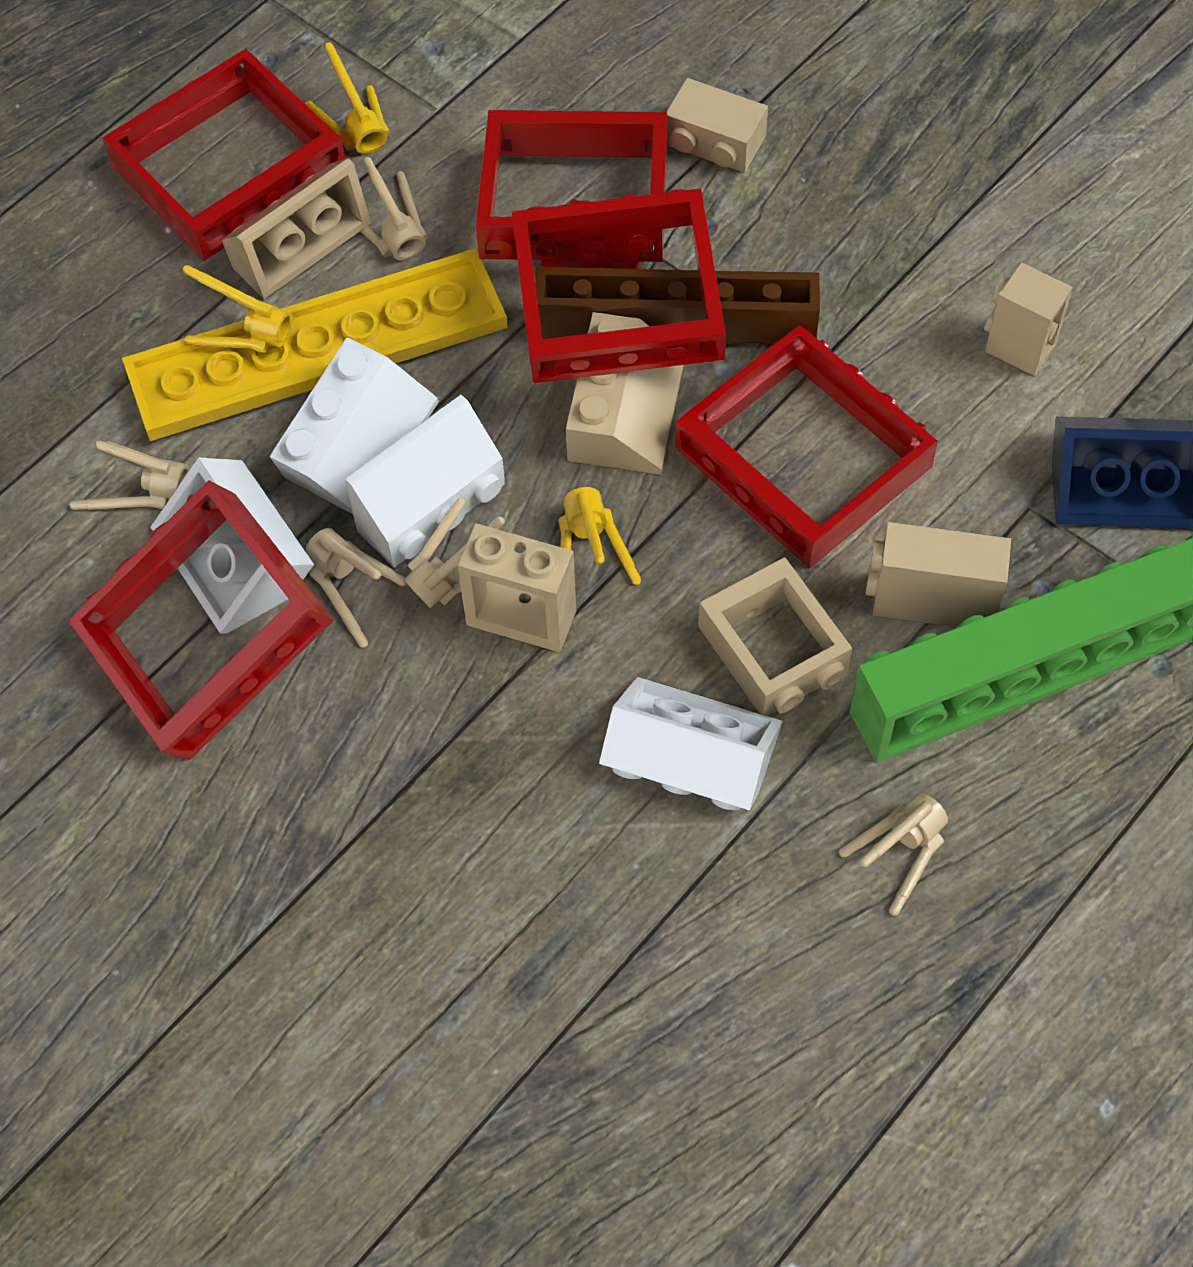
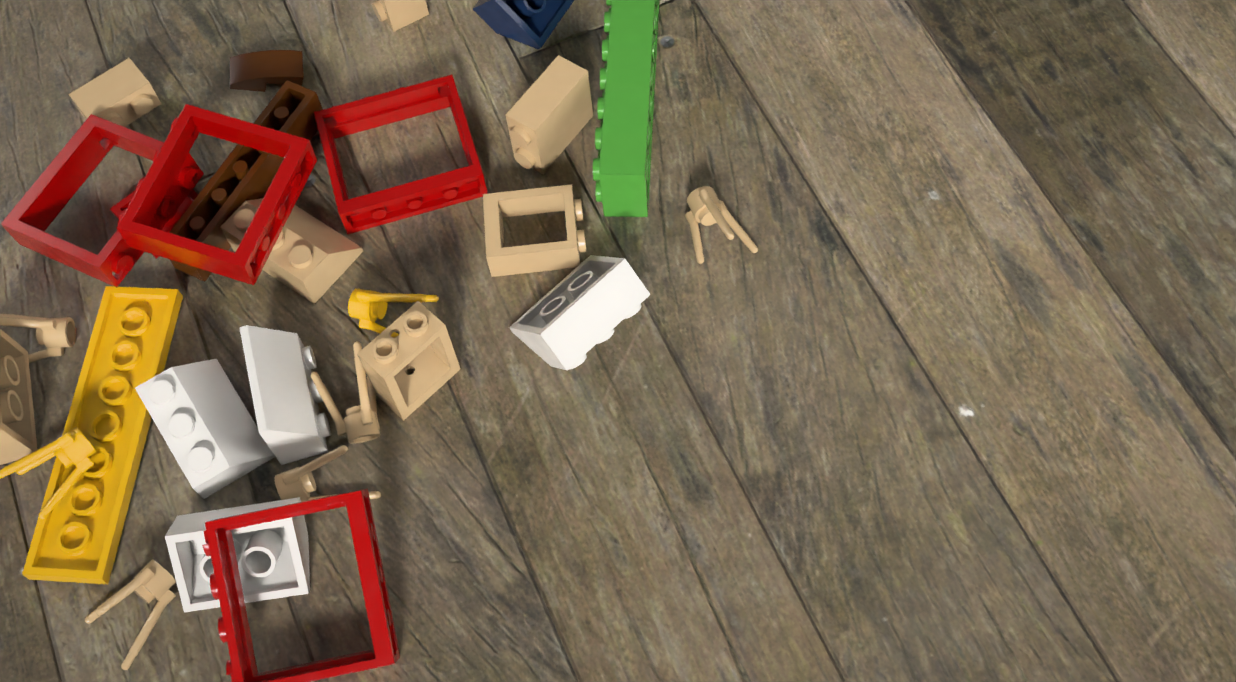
camera: 60 degrees left, 0 degrees up
(846, 247) = (256, 69): none -> reddish brown slope

